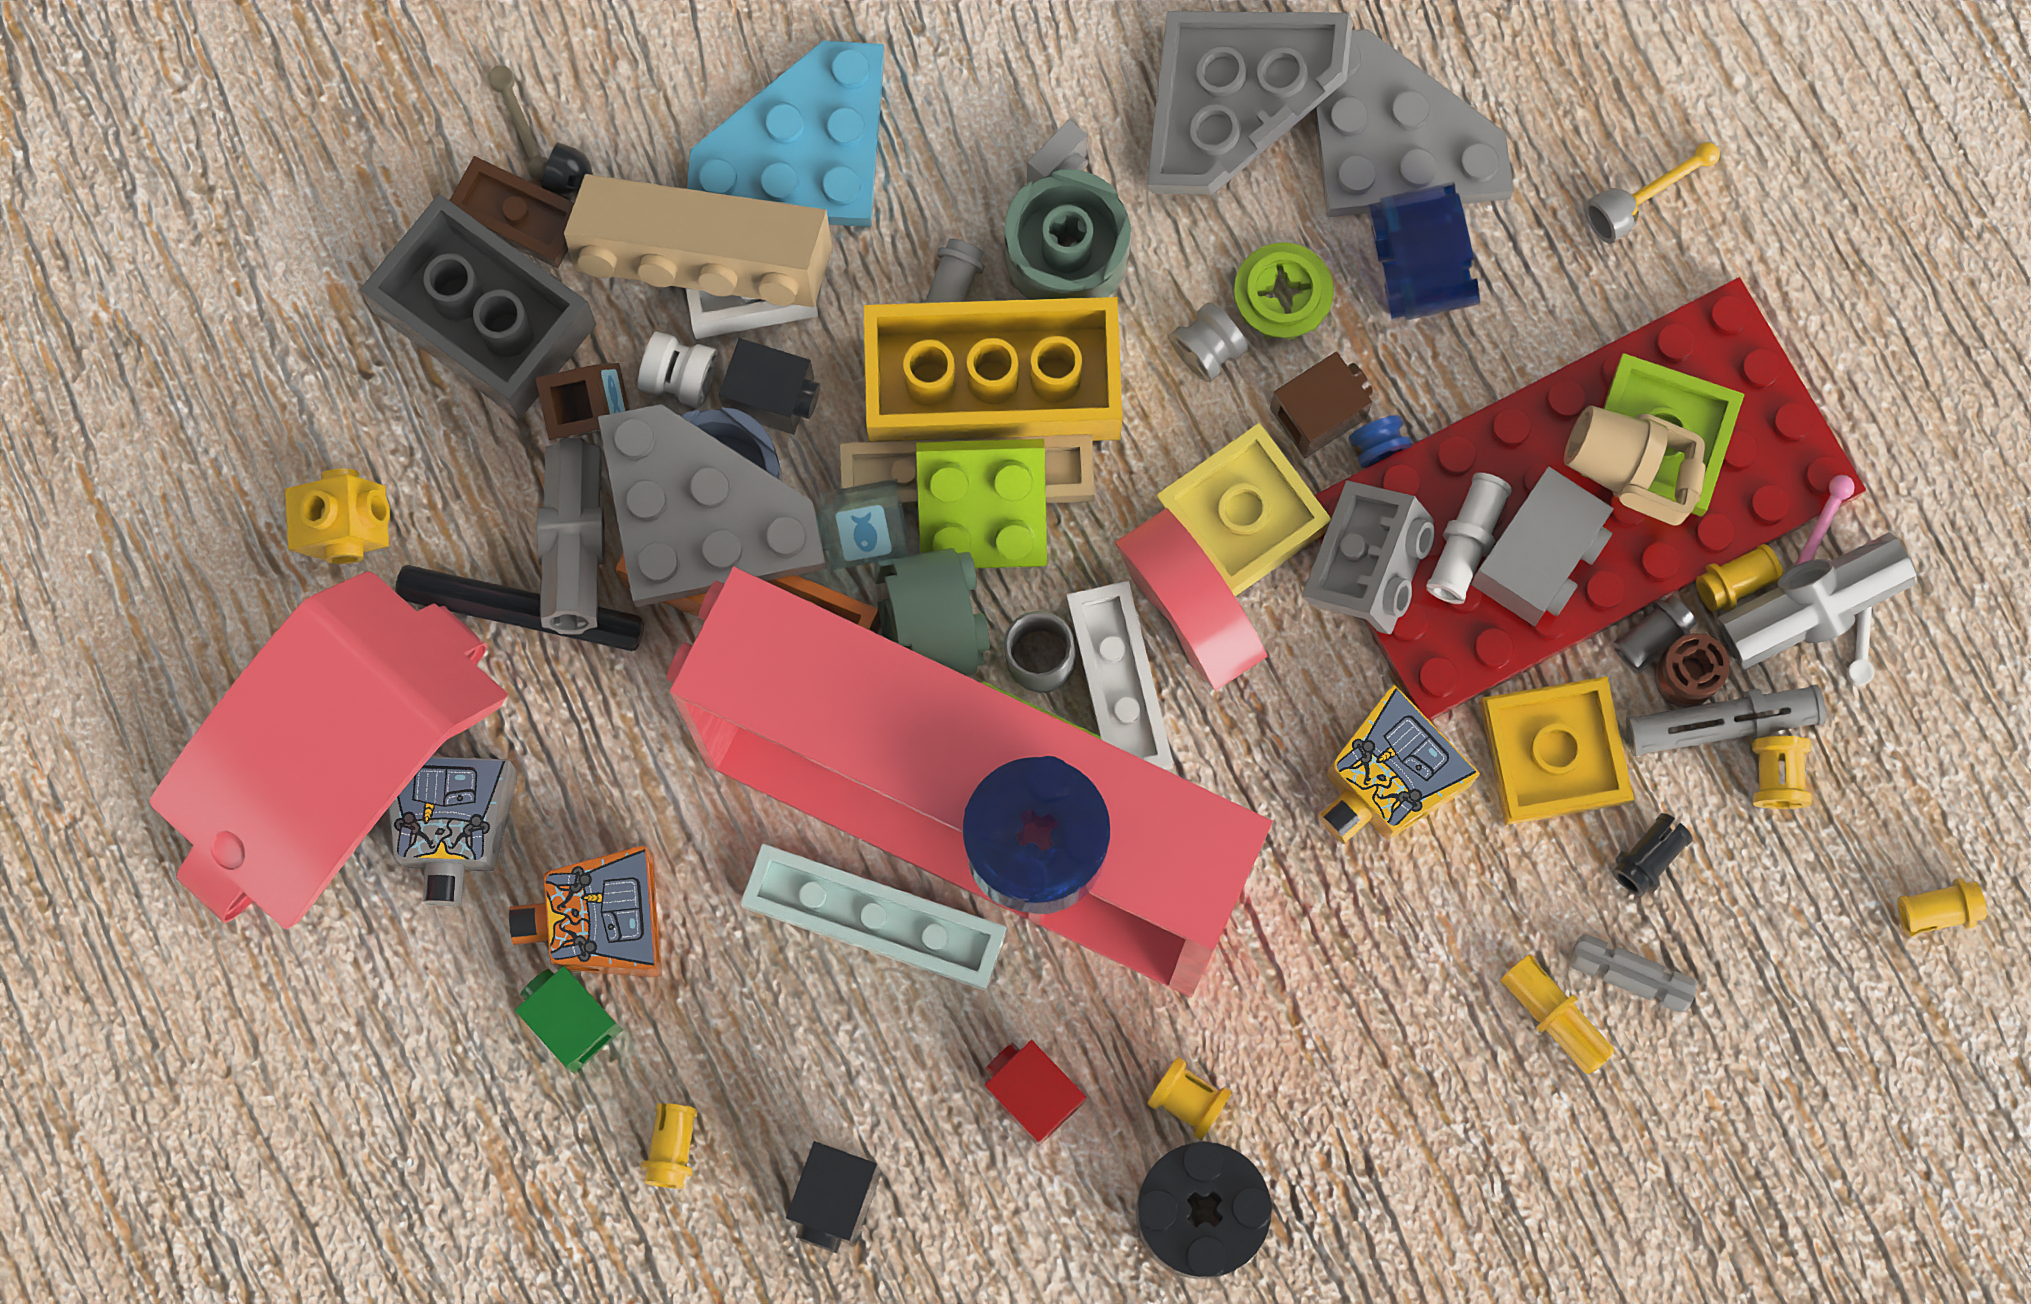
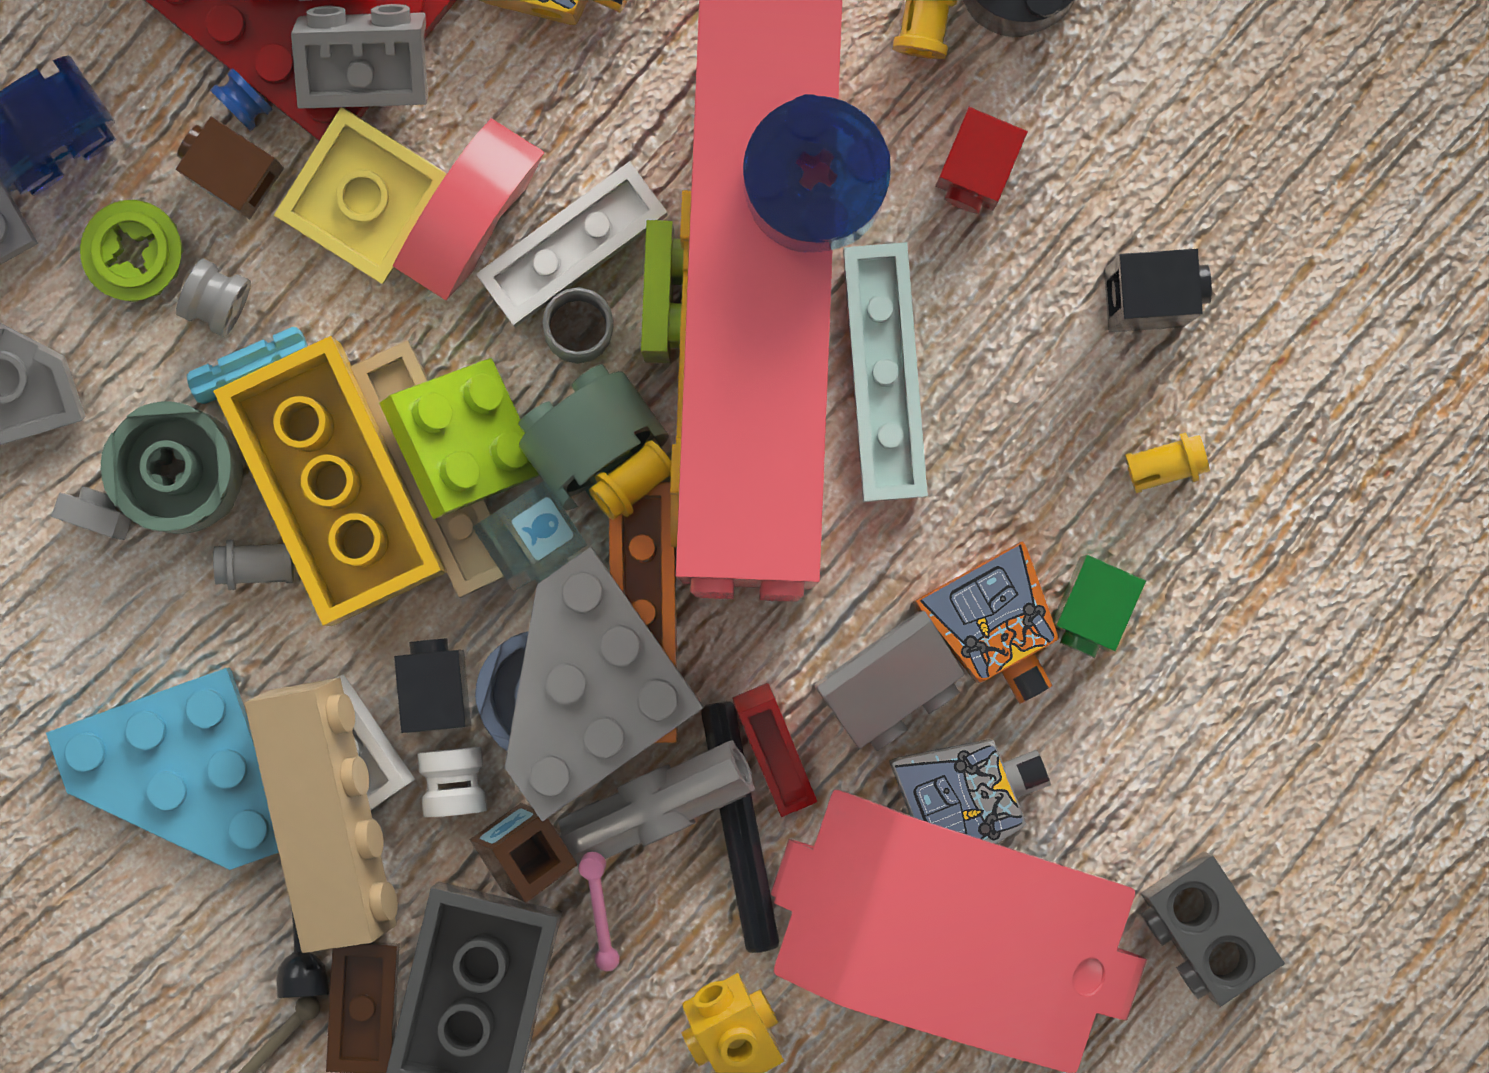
camera: 115 degrees left, 10 degrees up
(221, 1007) = (1222, 920): none -> dark grey brick
(540, 453) = (592, 868): none -> bright pink hinge
(576, 669) = (774, 749): none -> red piece
(584, 788) = (891, 681): none -> light grey slope
(866, 609) = (631, 480): none -> yellow pin
(1135, 349) = (240, 363): none -> medium azure axle

